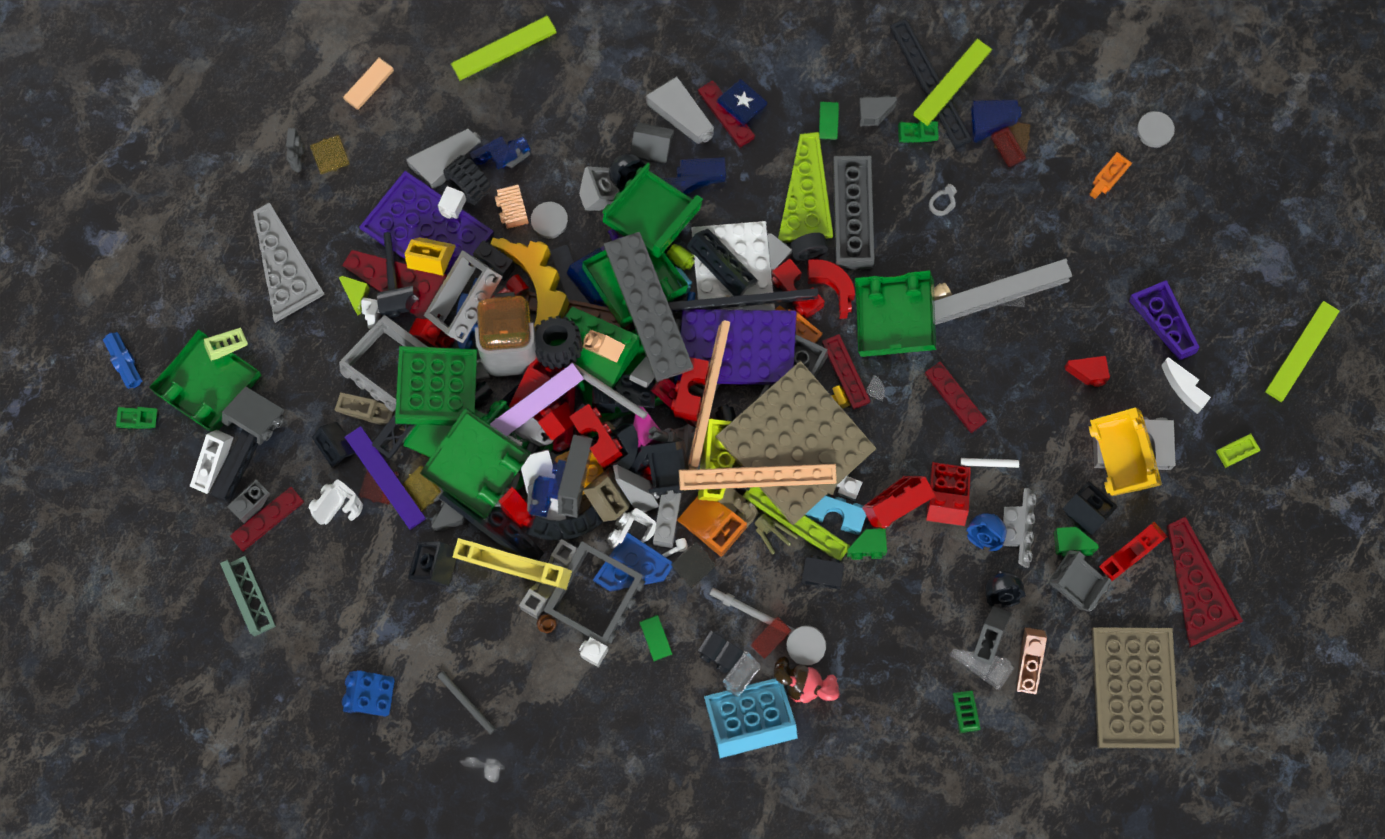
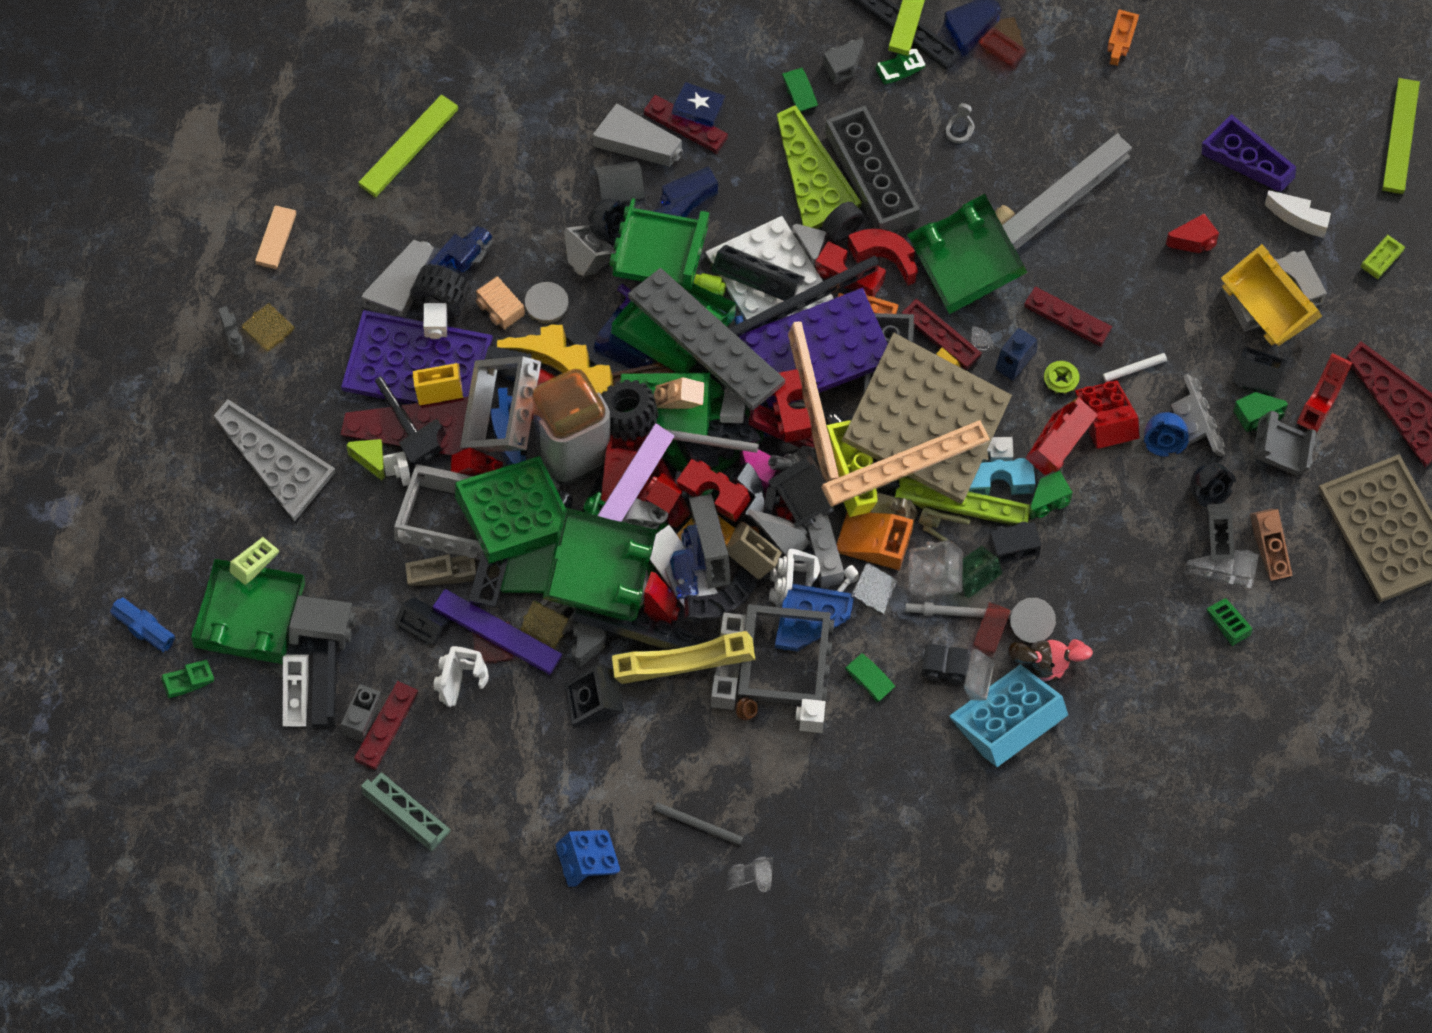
camera: 25 degrees left, 10 degrees down
(746, 572) = (935, 570): none -> clear brick
(780, 583) = (979, 570): none -> clear green bracket
(898, 412) = (1019, 349): none -> dark blue torso
(930, 440) = (1061, 368): none -> lime gear

